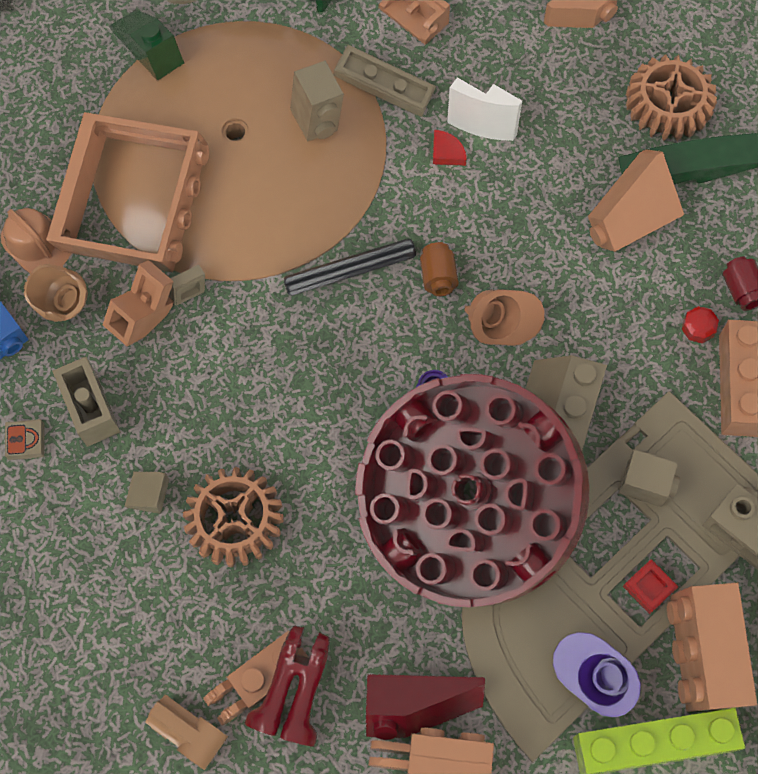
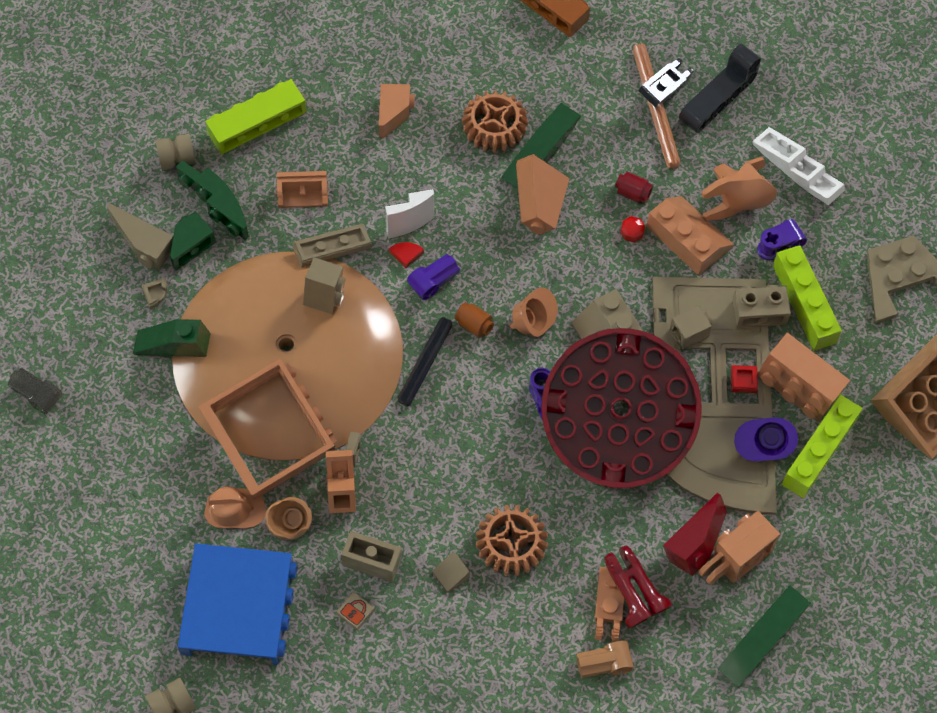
camera: 50 degrees left, 5 degrees down
(436, 191) = (429, 279): none -> dark purple piece

